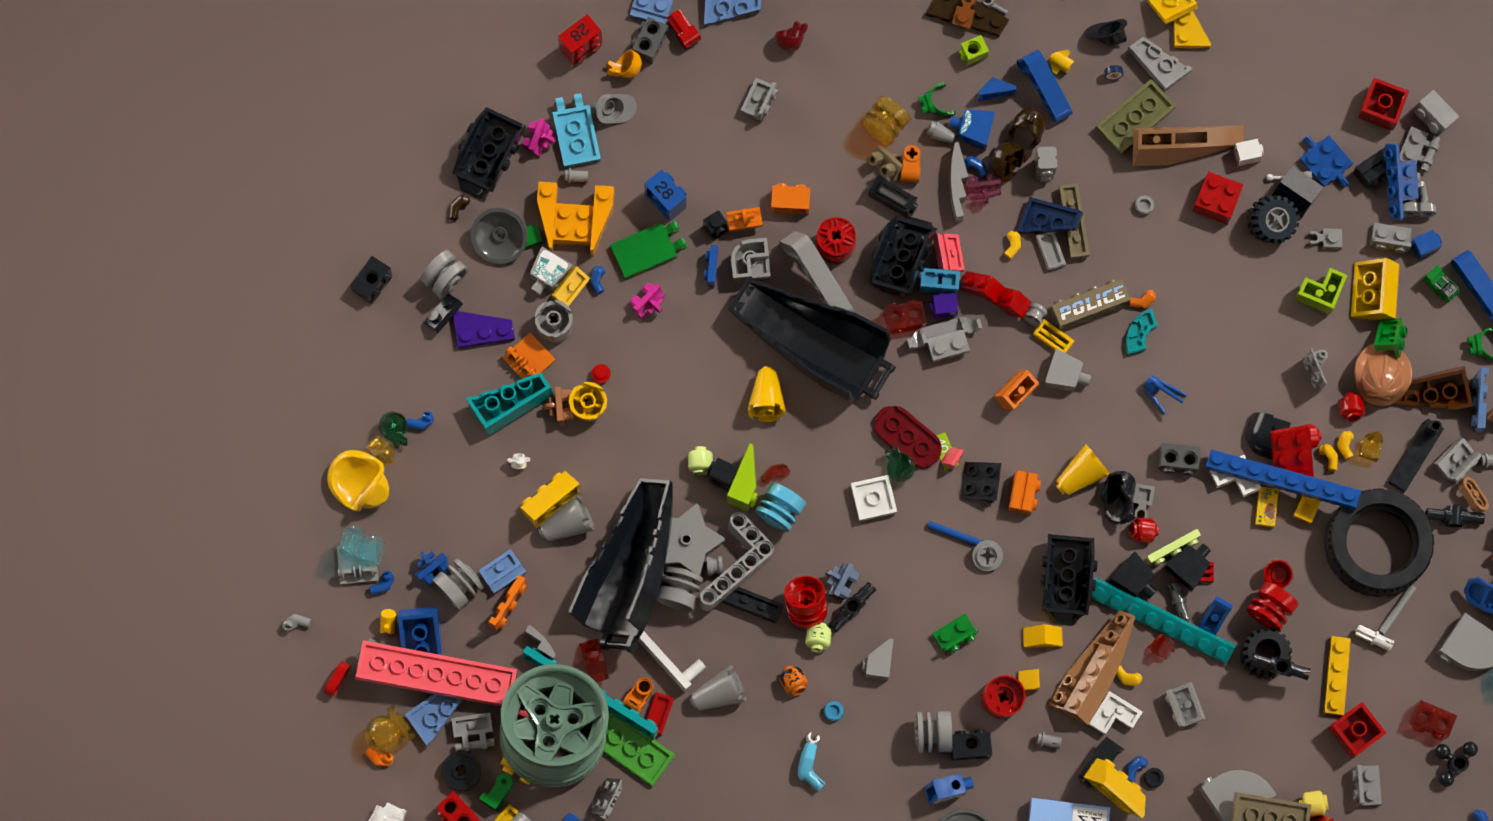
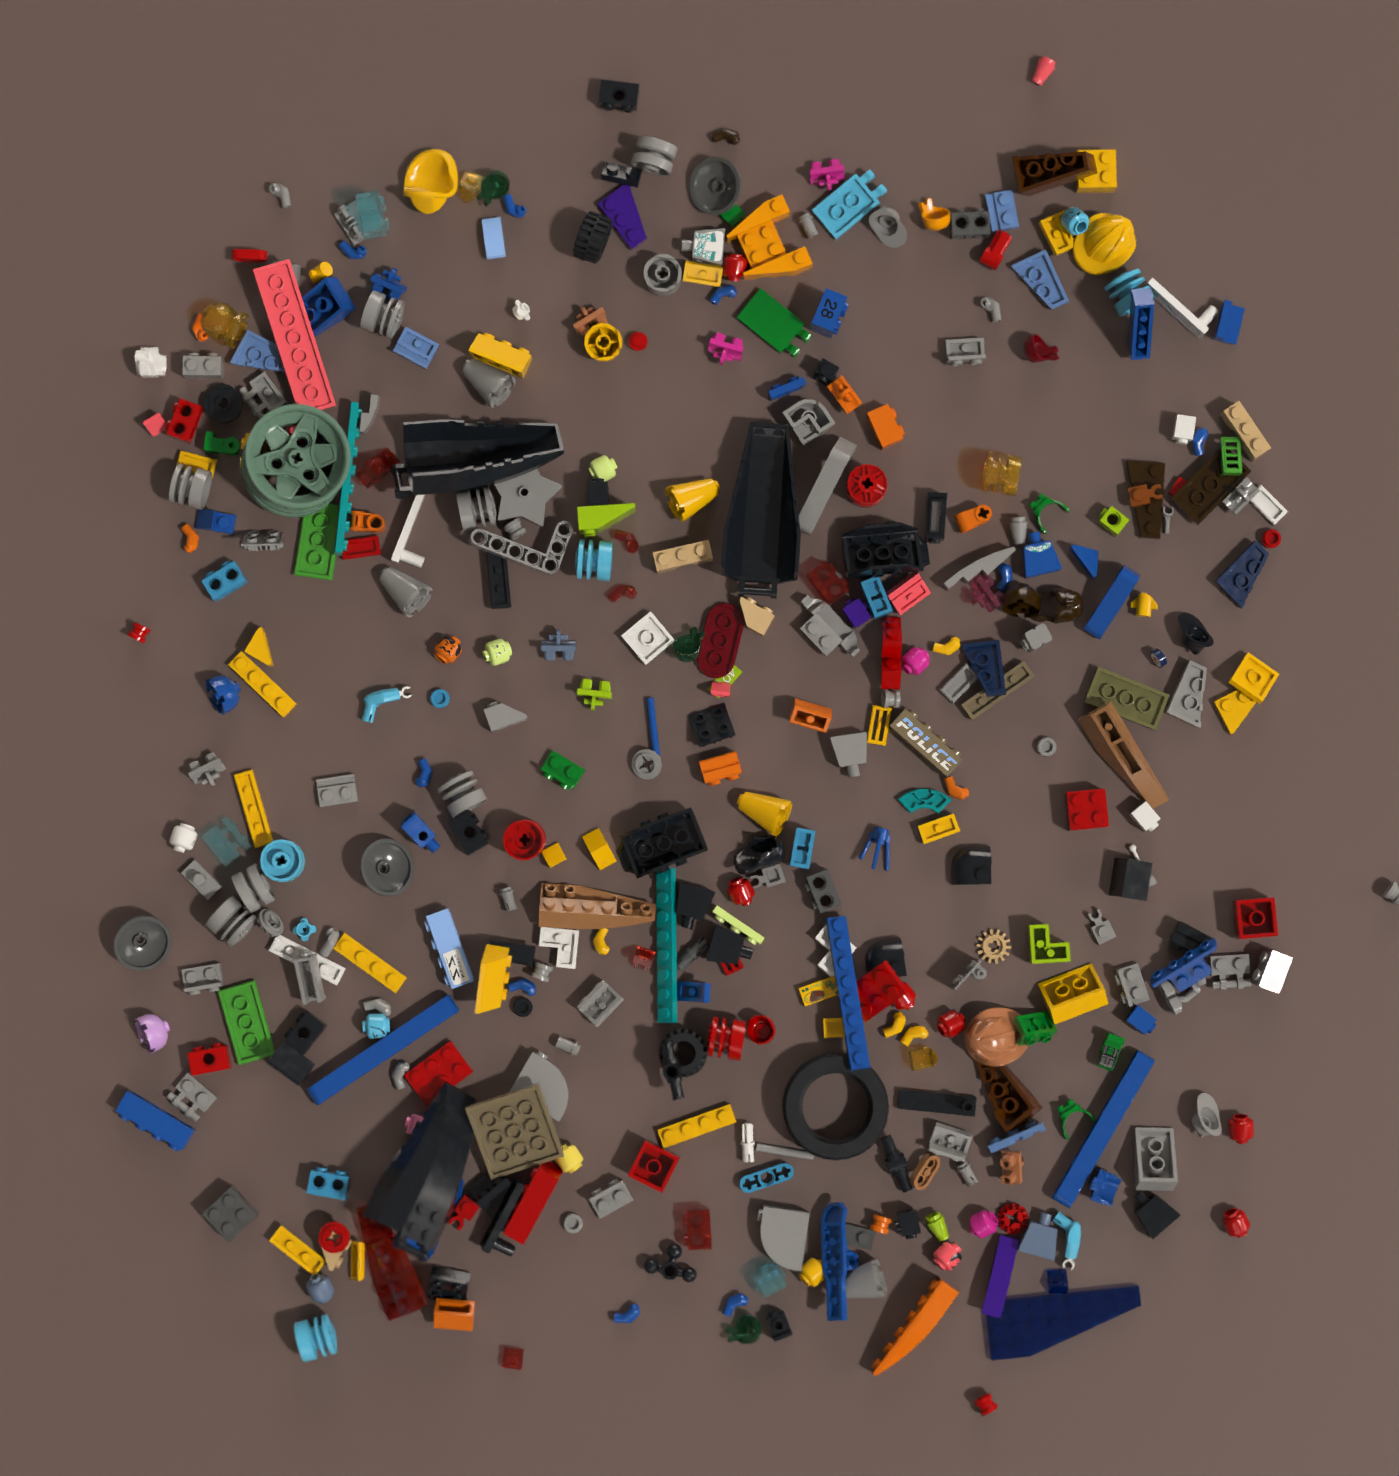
camera: 65 degrees right, 10 degrees up
(417, 772) = (203, 366): none -> light grey brick
(439, 452) = (493, 238): none -> light blue slope
(486, 152) = (788, 134): black slope -> none
(488, 363) = (592, 237): none -> black tyre
(509, 402) = (568, 274): teal wedge -> none
(518, 588) = (407, 368): orange wing -> none
(528, 357) = (619, 271): orange hinge -> none
(579, 256) = (734, 266): none -> red head
(580, 40) = (935, 162): red brick -> none
(732, 57) = (993, 307): none -> light grey arm
(806, 601) = (520, 624): red wheel -> none
(816, 430) = (683, 555): none -> tan arch
(821, 494) = (622, 590): none -> clear red arm
(845, 614) = (529, 666): black pin -> none
(887, 162) = (964, 496): dark tan hips -> none
(897, 758) = (426, 774): none -> blue arm
(903, 561) = (585, 690): none -> lime hips
(904, 394) = (755, 617): none -> tan slope
(1013, 276) = (915, 661): none -> dark pink head
(1130, 743) = (541, 971): none -> light grey wheel
(1132, 456) = (802, 848): none -> dark azure brick
(1172, 331) = (938, 828): none -> yellow plate
(1209, 754) = (568, 1046): none -> light grey pin
(1219, 319) = (972, 866): none -> black brick
(1273, 219) = (1090, 869): black wheel -> none
(1299, 330) = (987, 950): none -> tan gear
(1326, 161) = (1174, 892): blue plate -> none
(1410, 622) = (763, 1185): none -> dark azure beam

